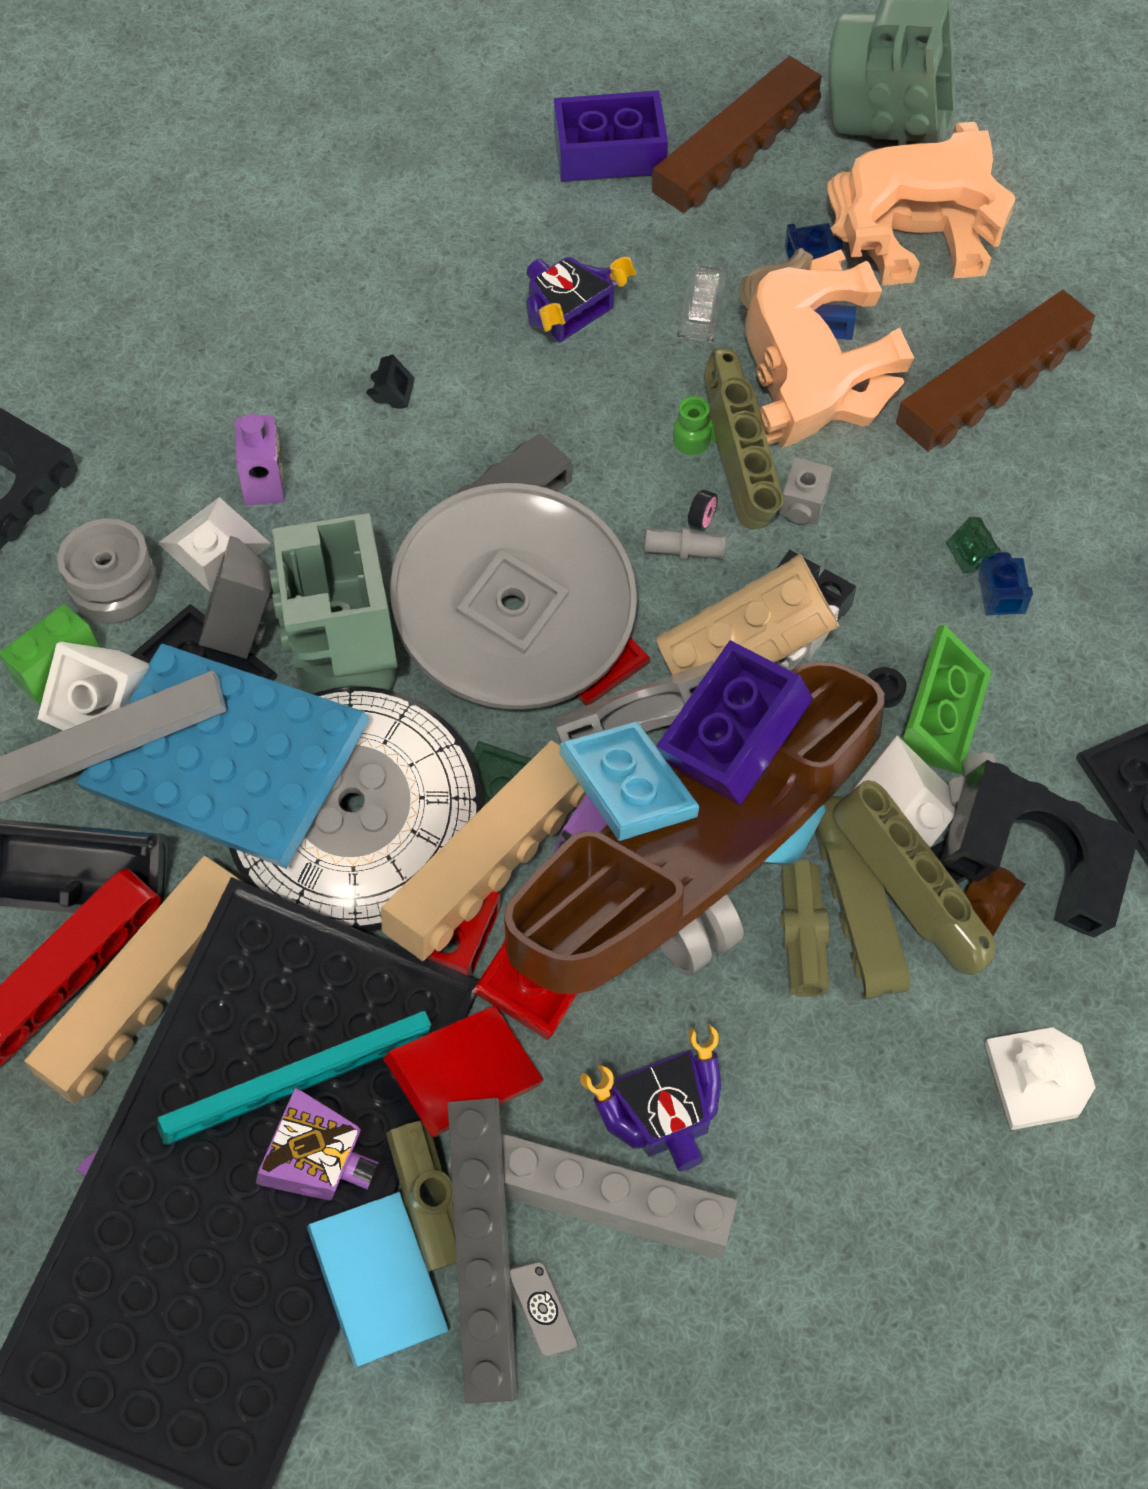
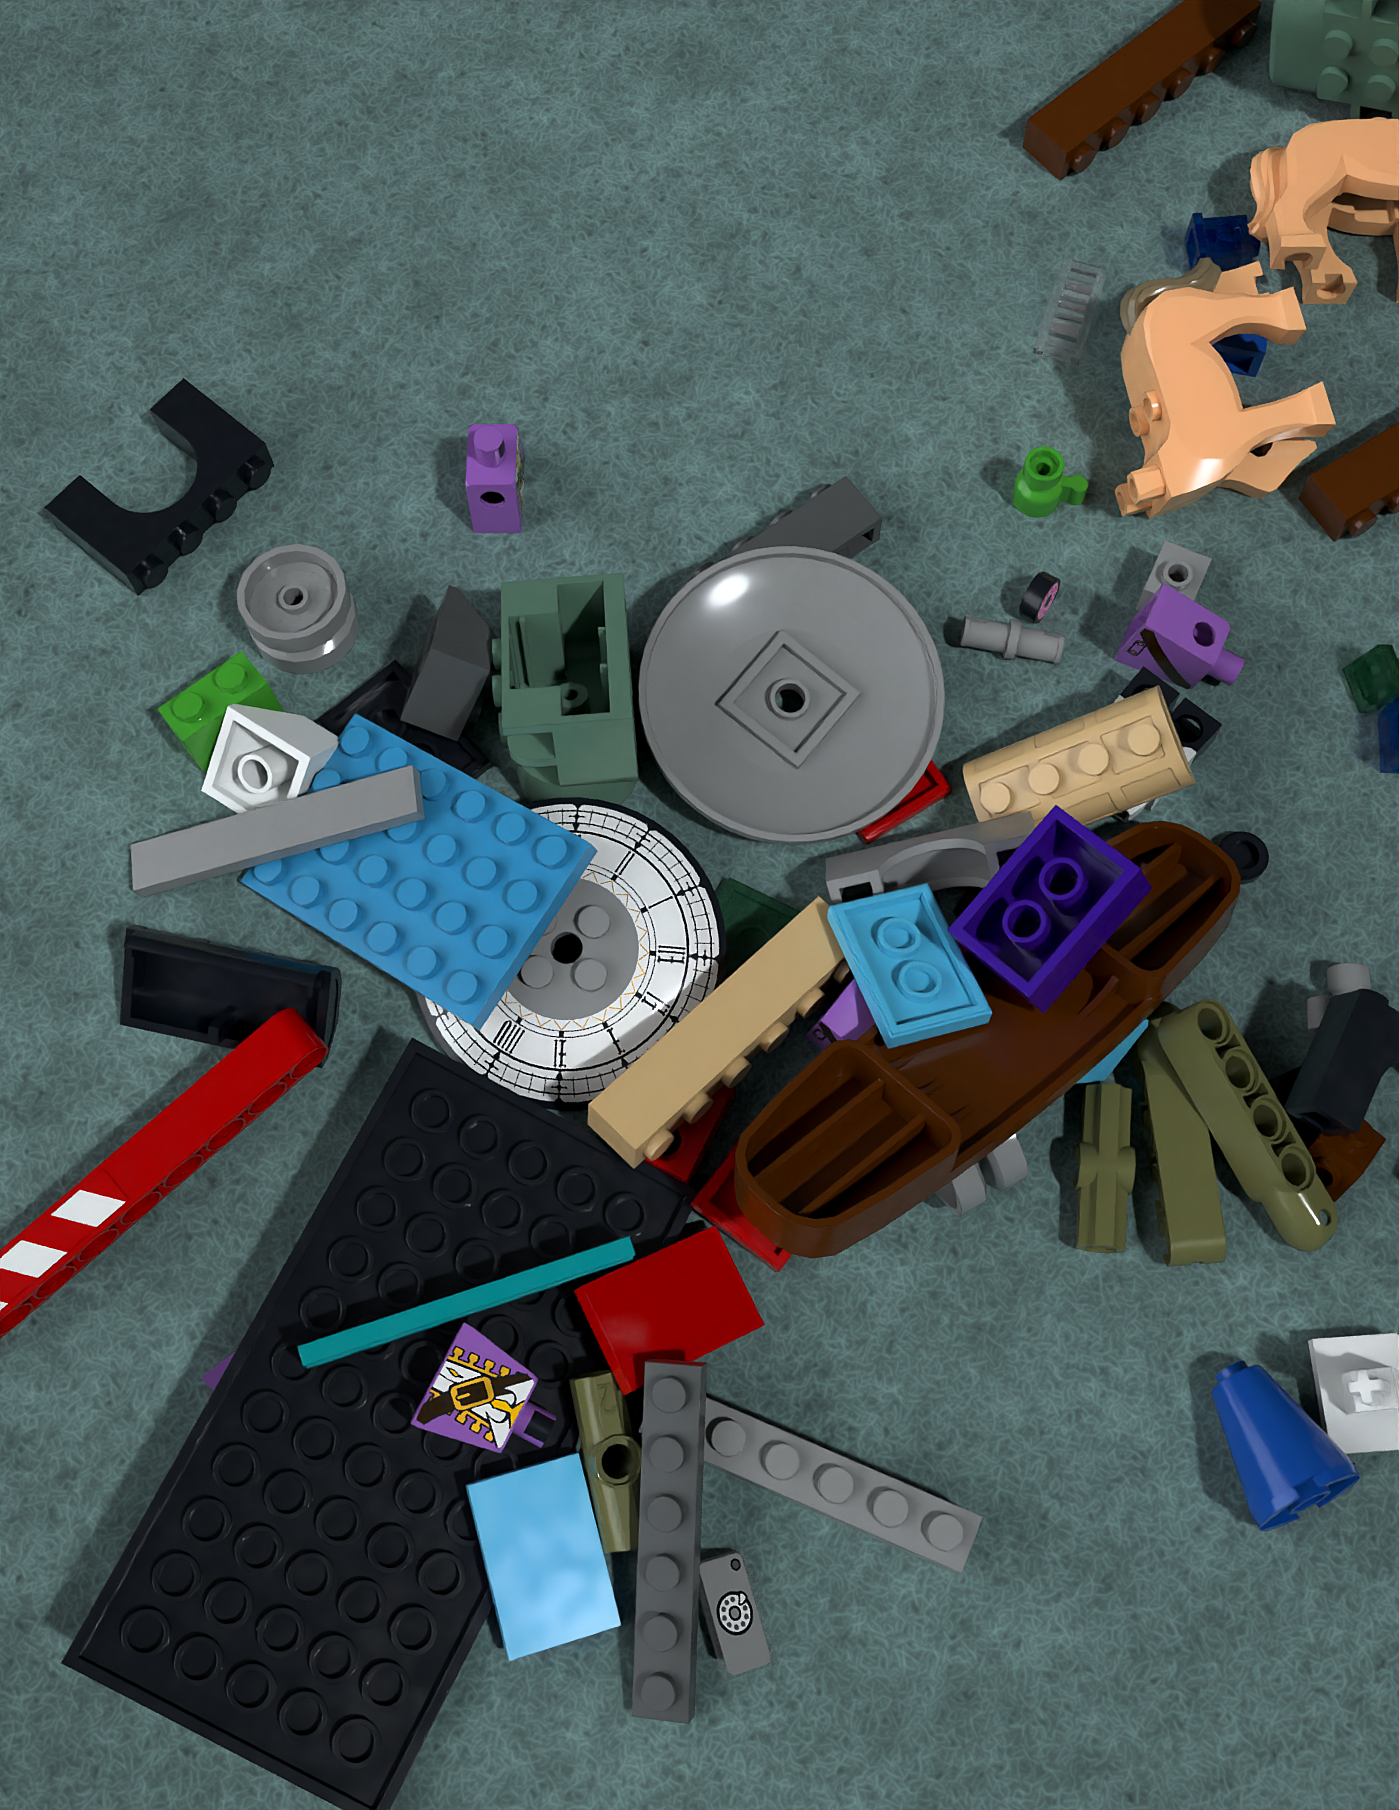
camera: 10 degrees right, 10 degrees up
(129, 988) = (287, 1151): tan brick -> none
(204, 537) = (420, 572): white slope -> none
(391, 383) = (668, 386): black tile -> none
(572, 293) = (906, 284): torso -> none
(609, 135) = (977, 65): dark purple brick -> none
(664, 1102) = (907, 1374): torso -> none
(740, 453) = (1091, 524): olive piece -> none
(816, 529) = (1179, 641): none -> medium lavender torso
(913, 787) = (1260, 1002): white slope -> none
(947, 703) = (1315, 891): bright green slope -> none
(971, 1126) = (1277, 1448): none -> blue cone

